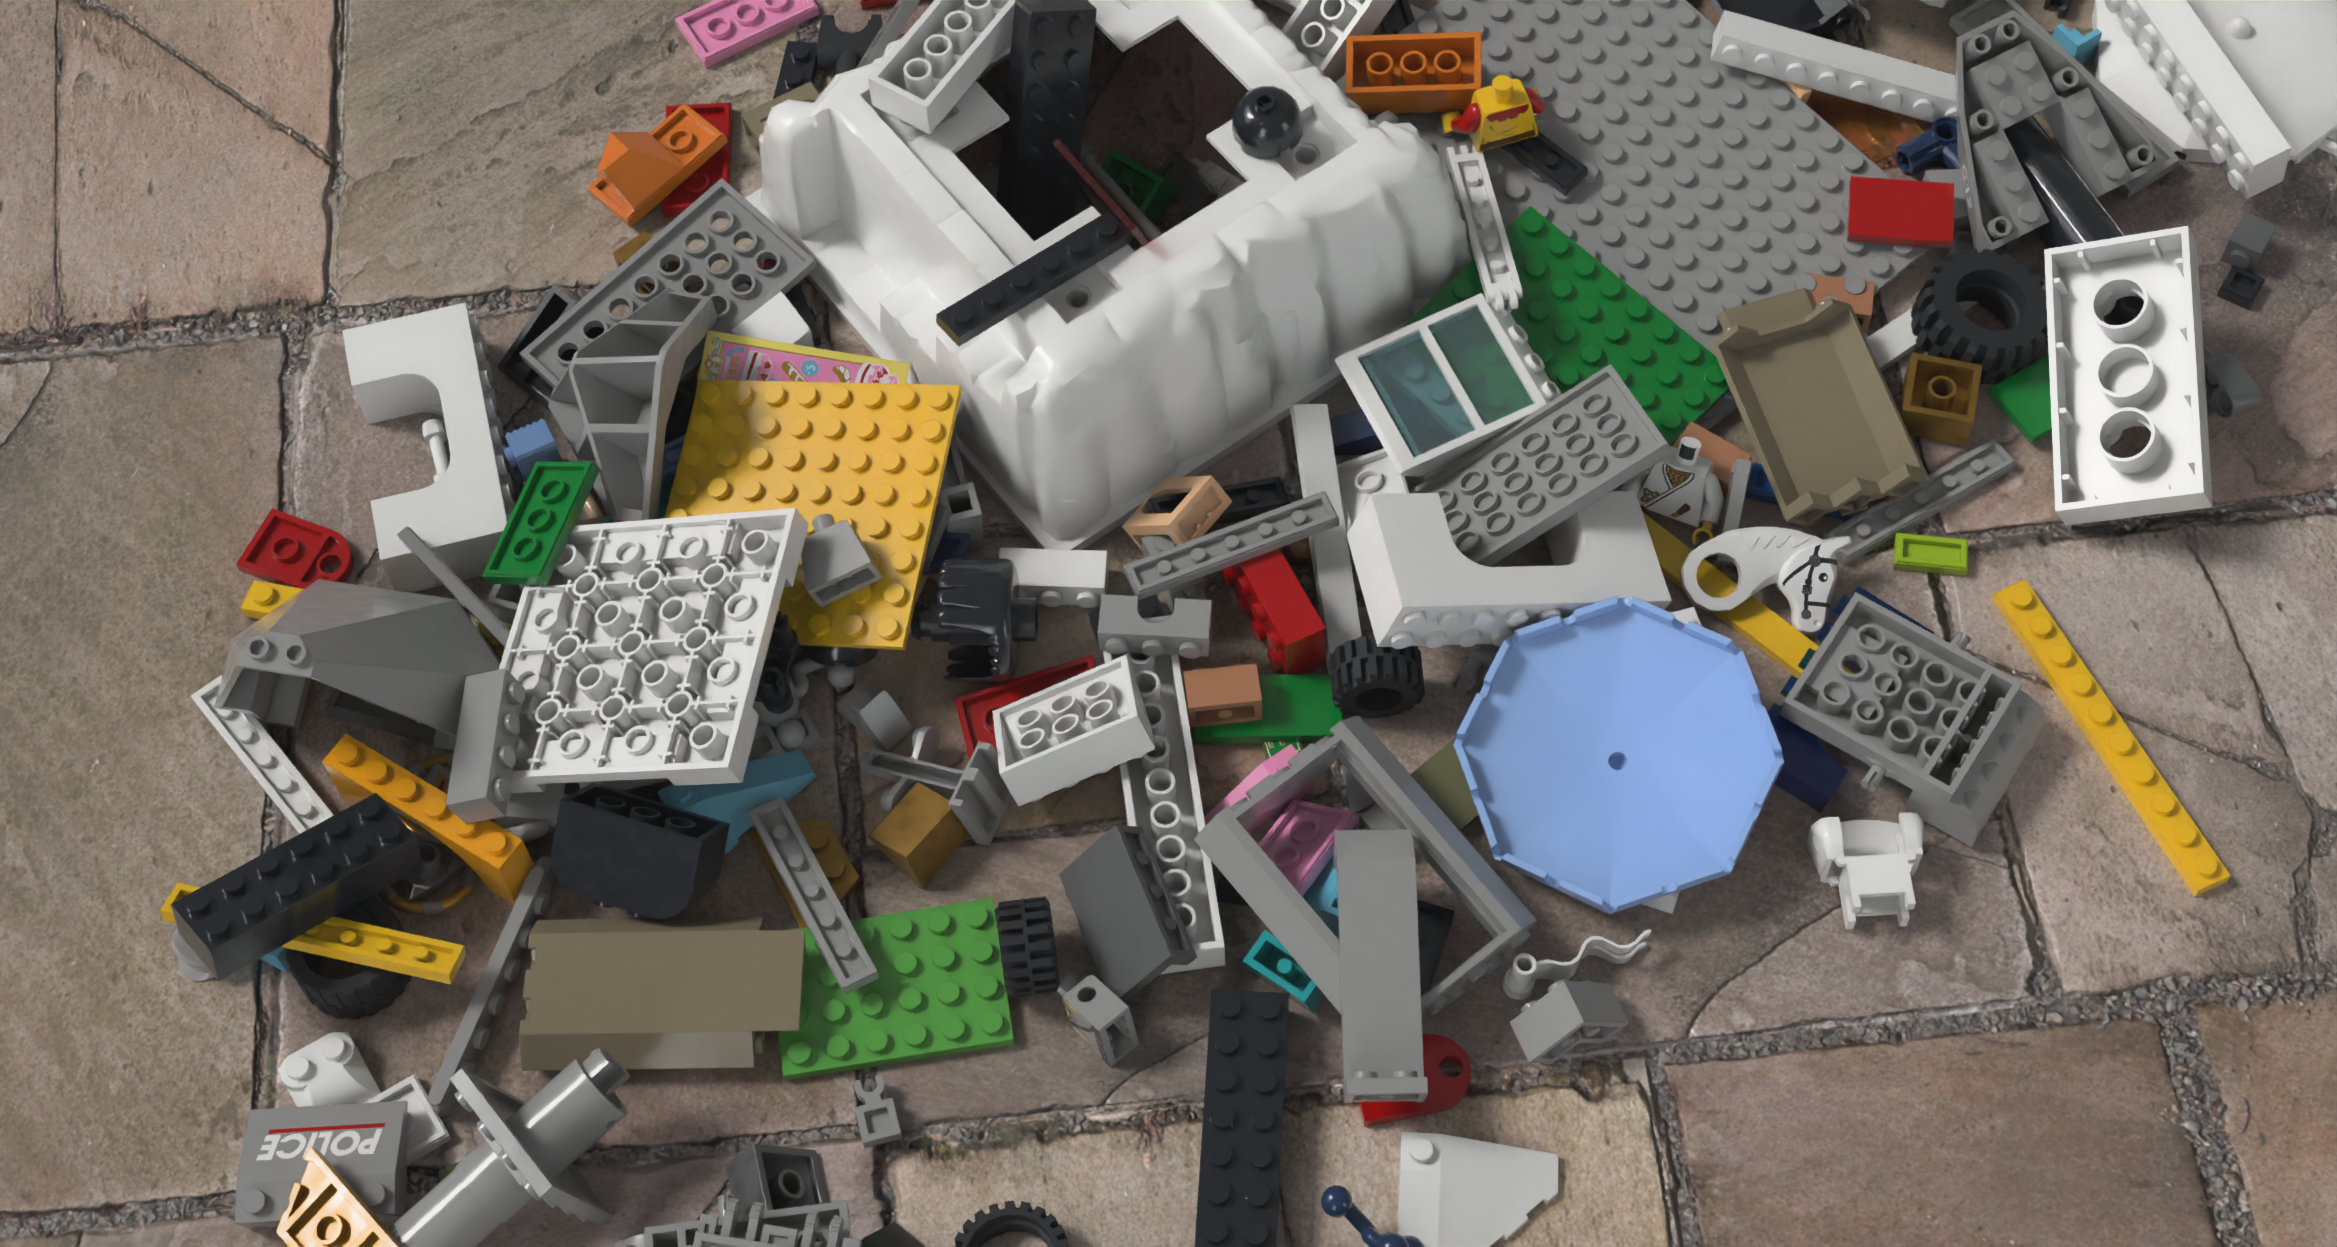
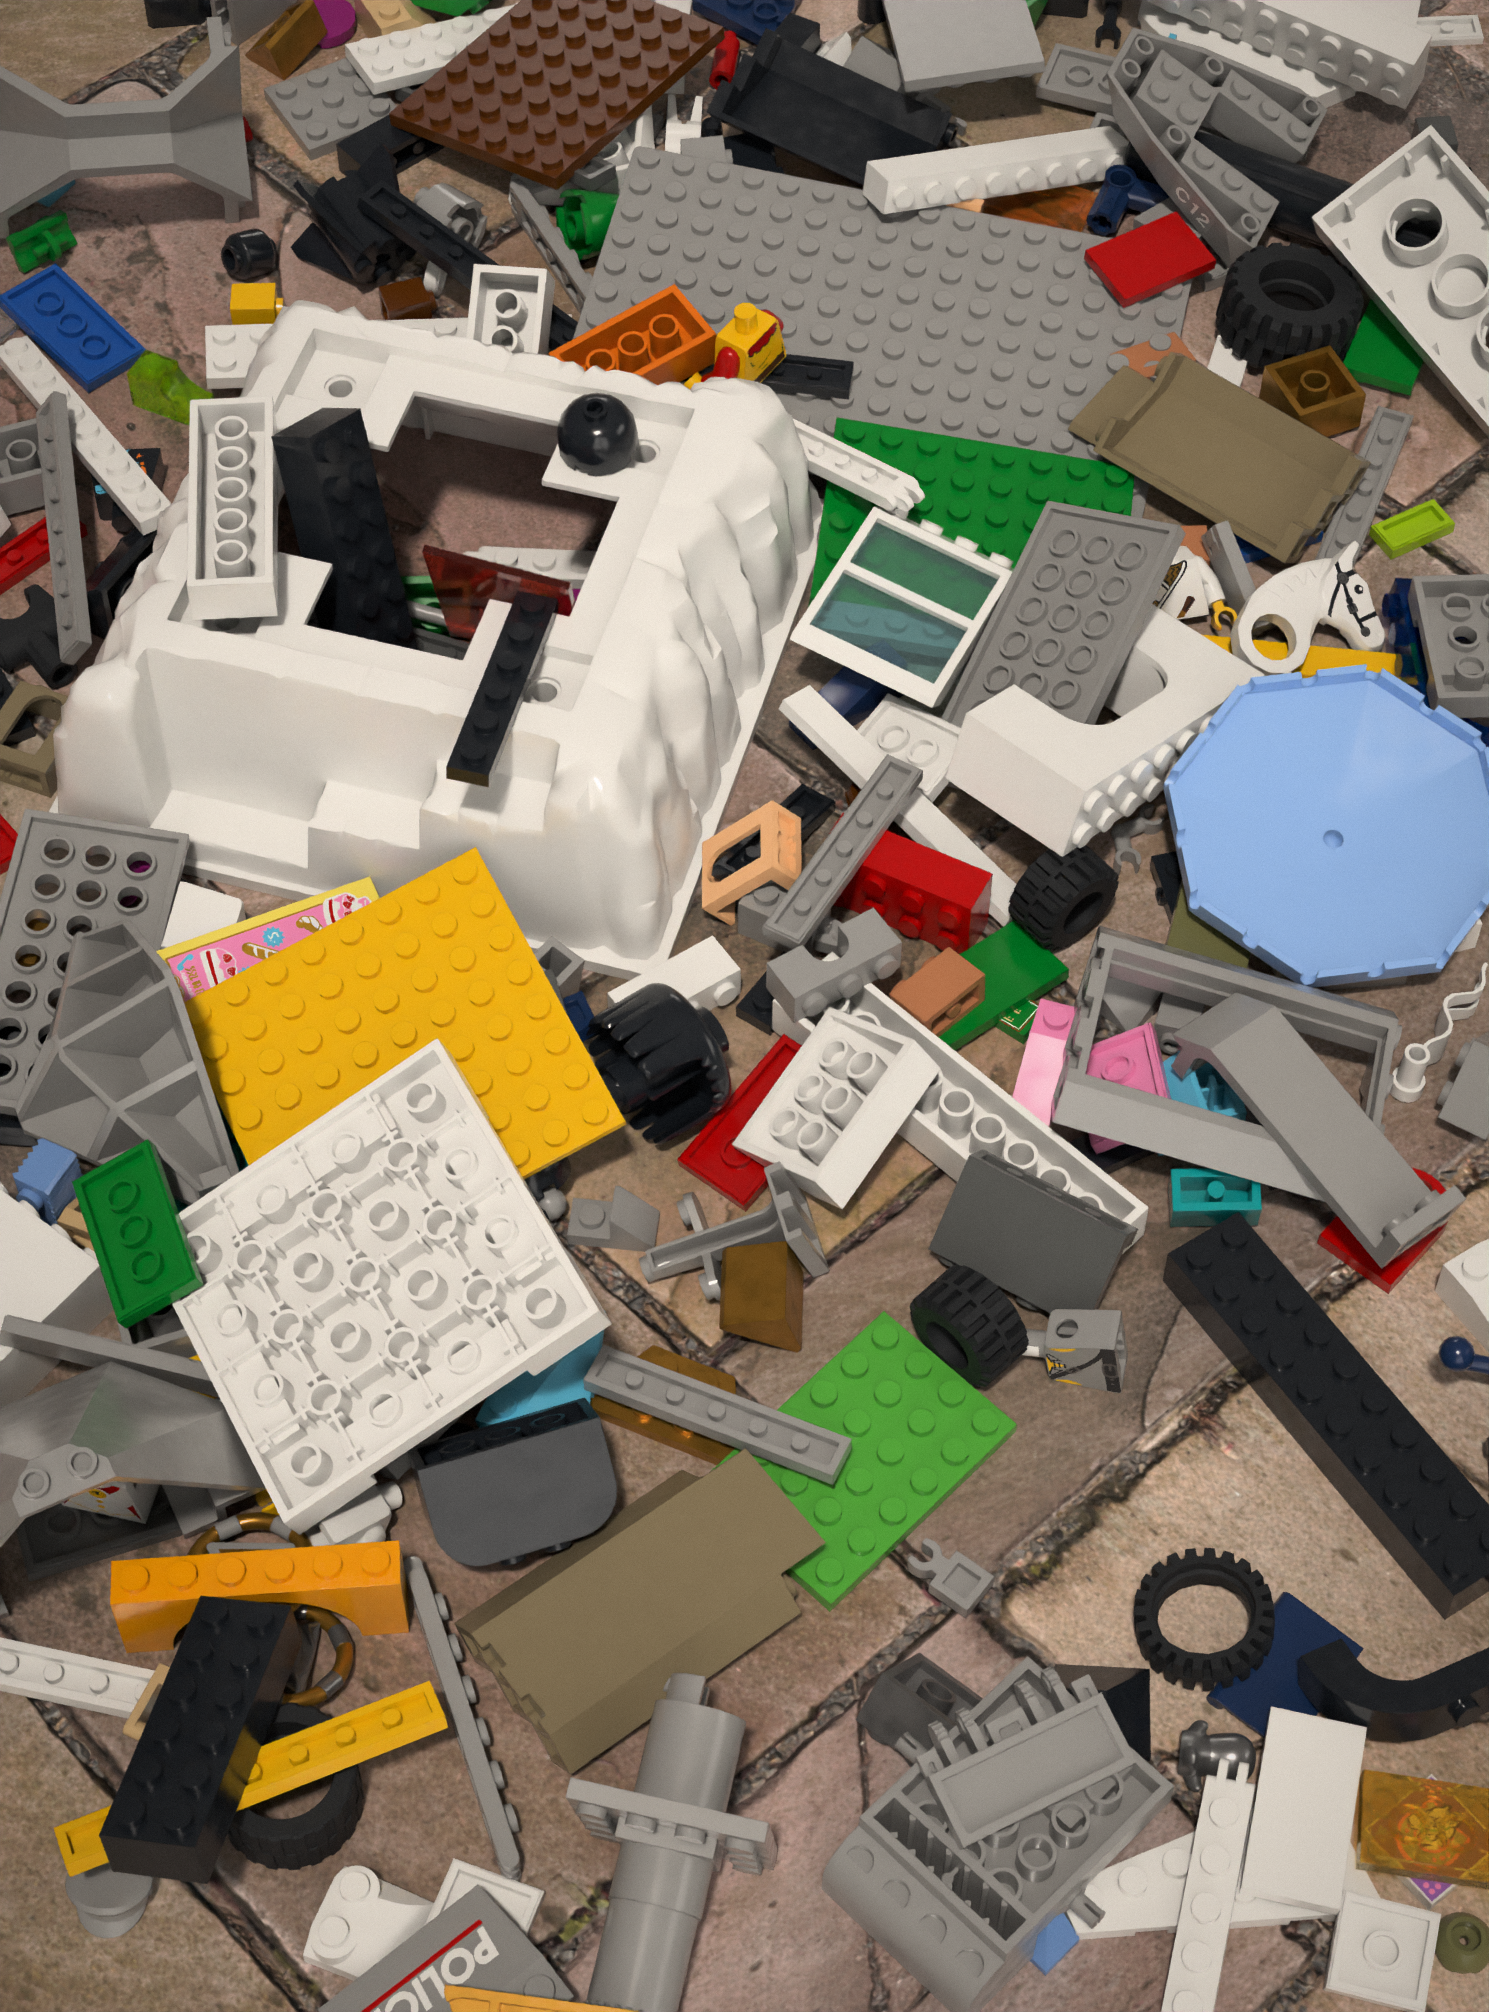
camera: 40 degrees left, 5 degrees down
(485, 746) = (291, 1470): light grey brick -> none
(835, 561) = (501, 1075): light grey torso -> none

